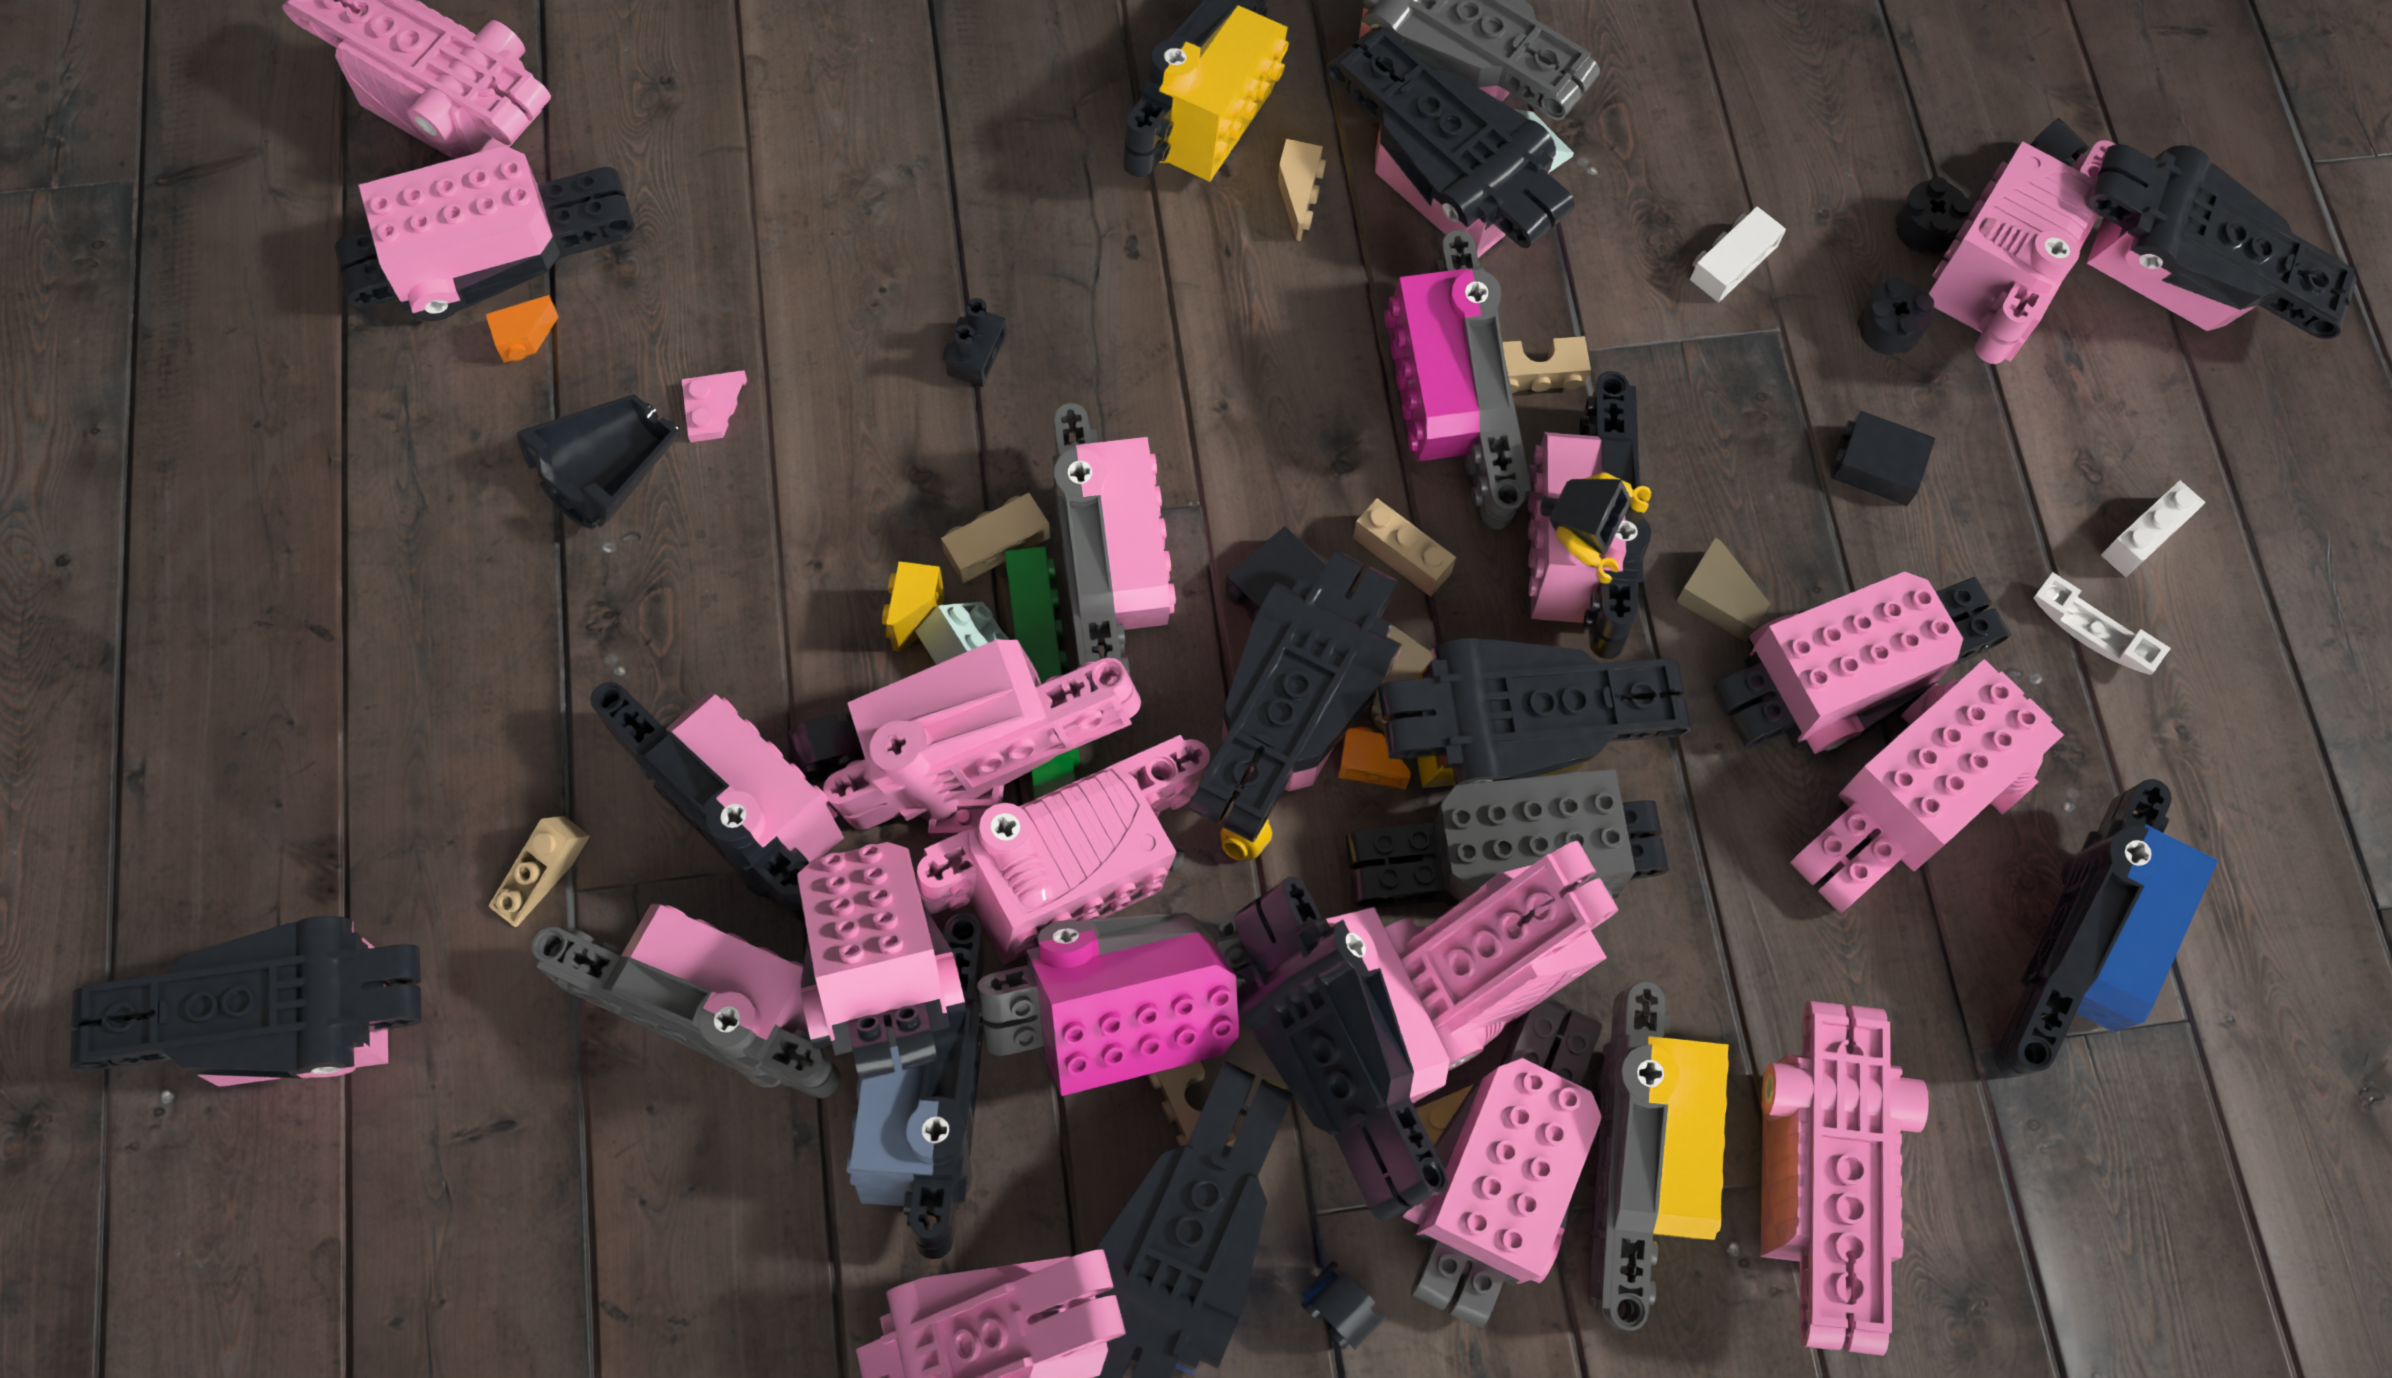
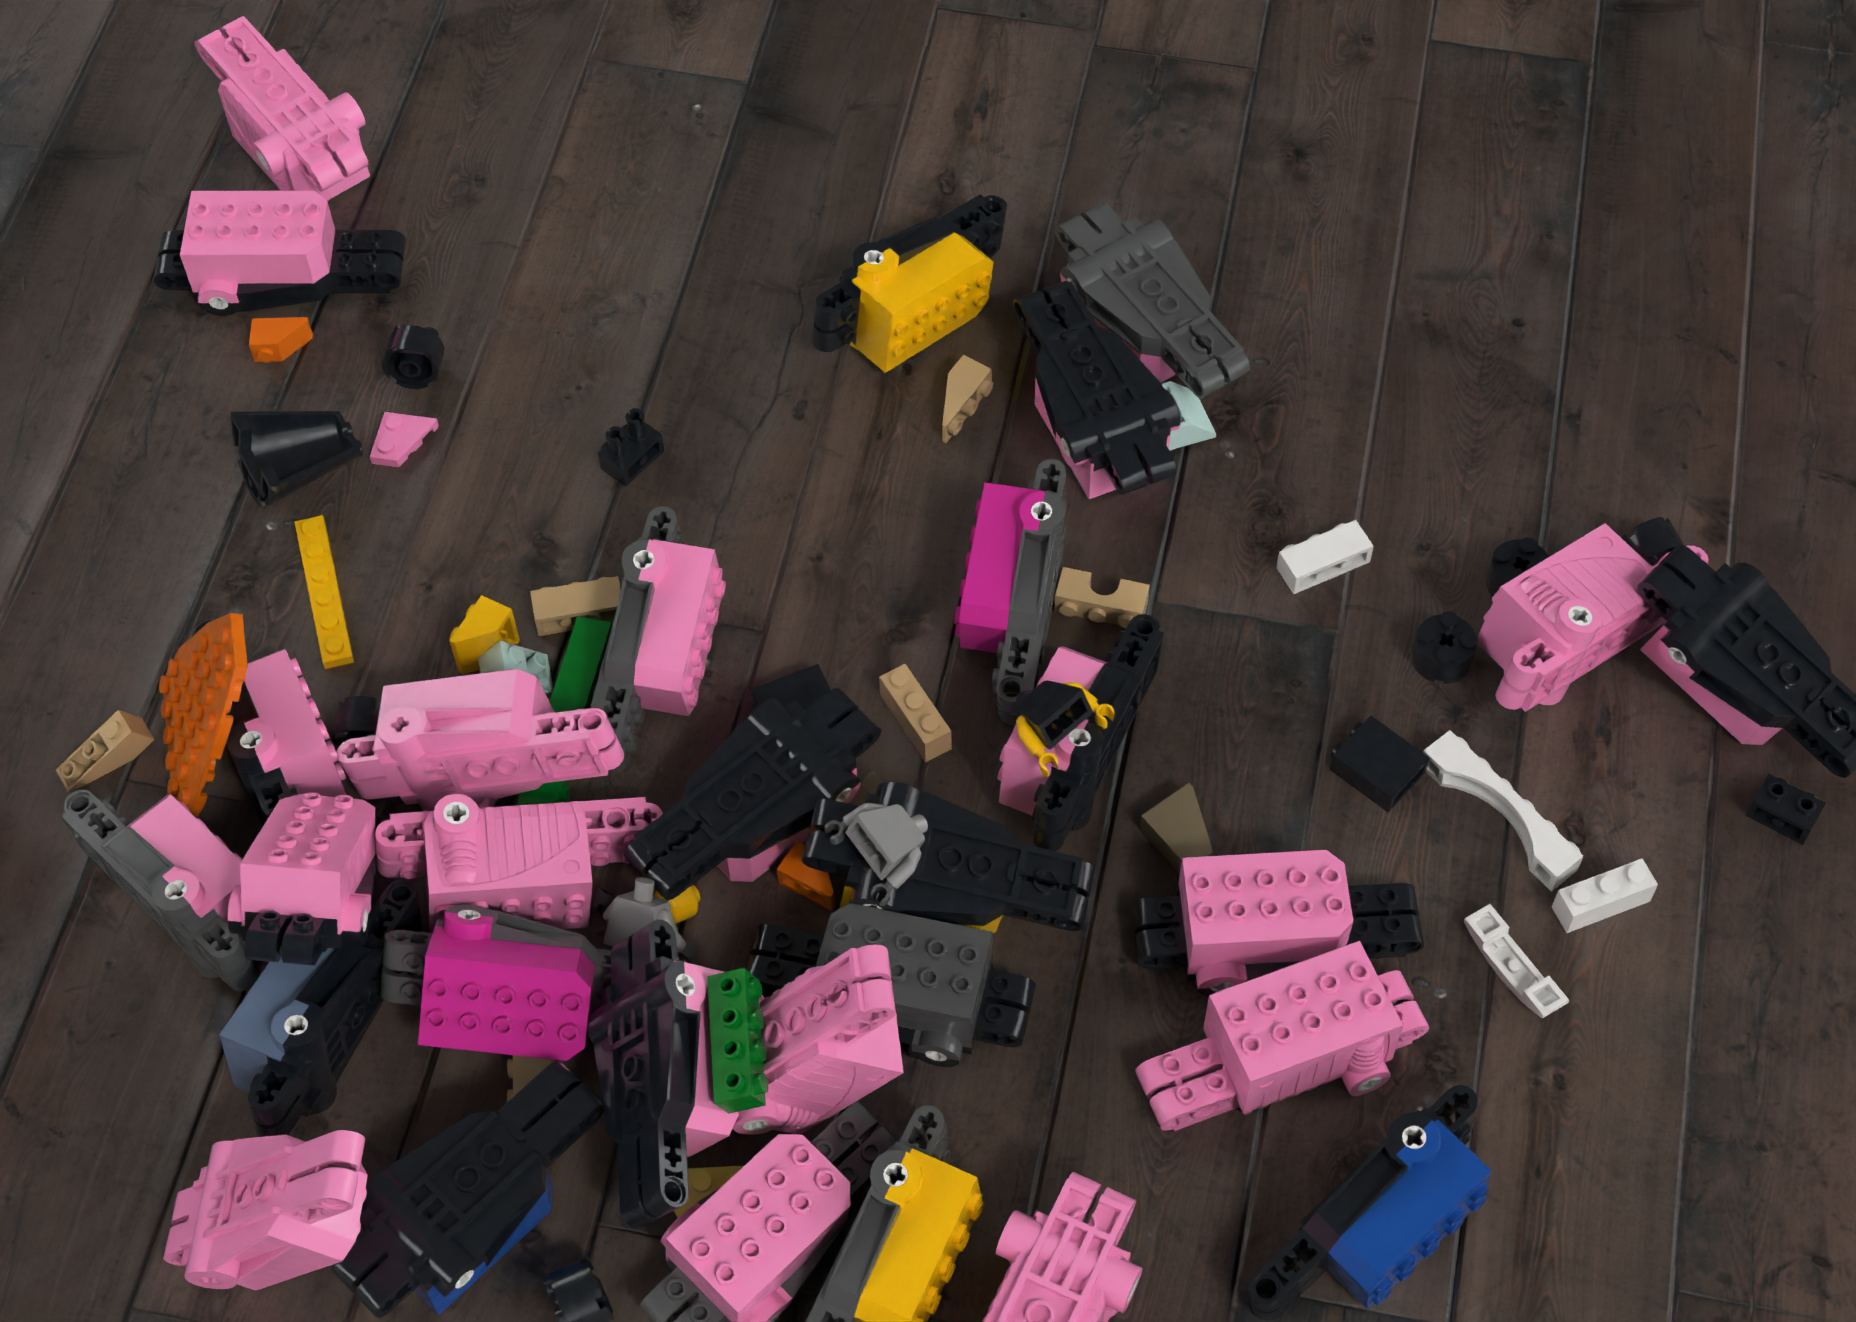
camera: 25 degrees right, 10 degrees down
(643, 783) = (196, 699): none -> orange wing
(690, 306) = (413, 356): none -> black brick
(704, 606) = (324, 592): none -> yellow plate
(1231, 873) = (636, 910): none -> light grey torso
(1425, 984) = (737, 1041): none -> green brick
(1484, 709) = (885, 839): none -> light grey torso
(2077, 498) = (1548, 852): none -> white arch
(2278, 386) = (1785, 809): none -> black brick

